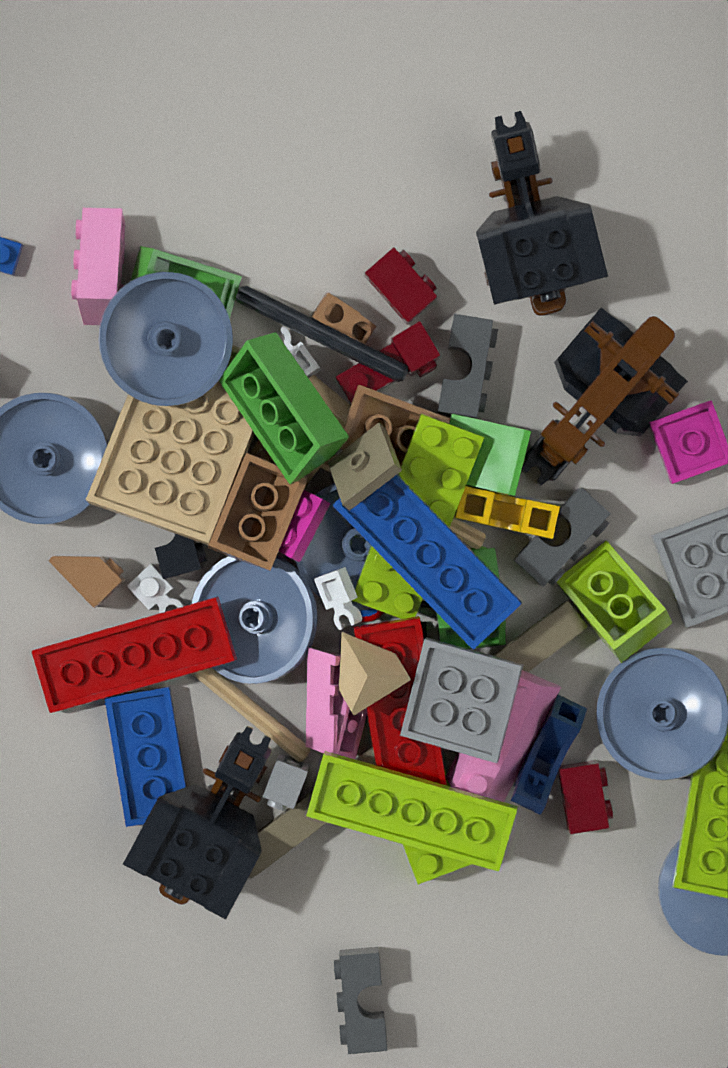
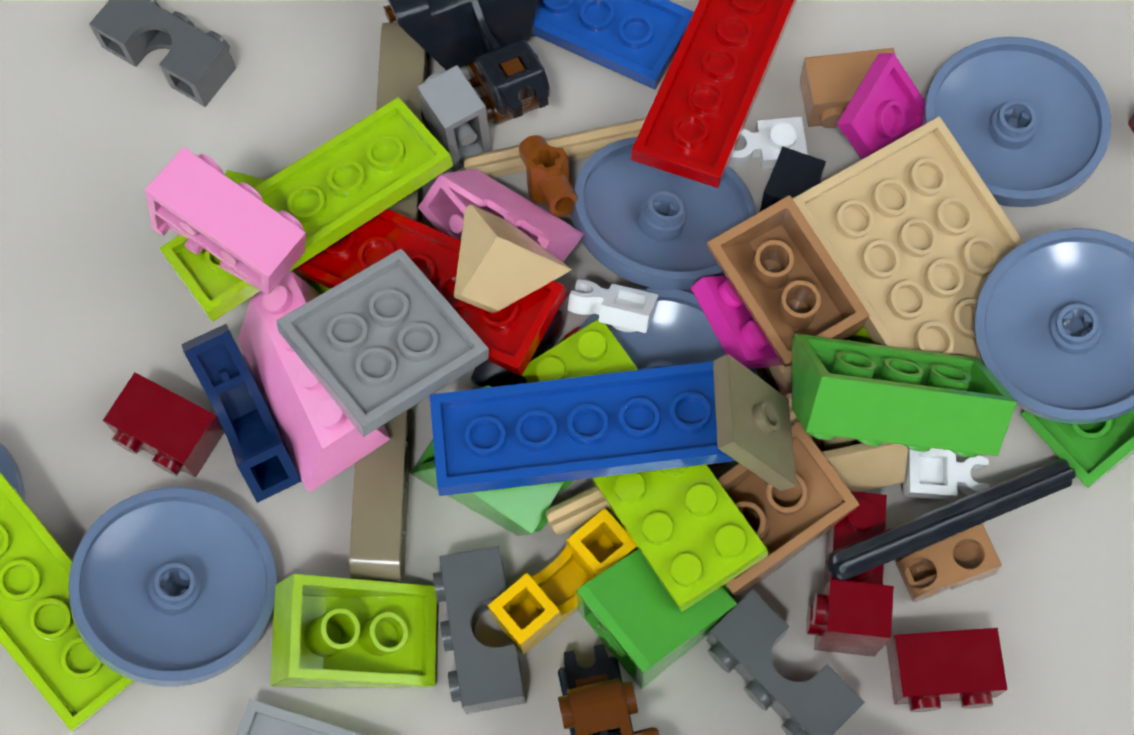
camera: 130 degrees right, 20 degrees down
(98, 535) = (882, 107): none -> dark pink plate
(277, 707) = (547, 175): none -> dark orange axle
(463, 835) = (225, 220): none -> bright pink wedge

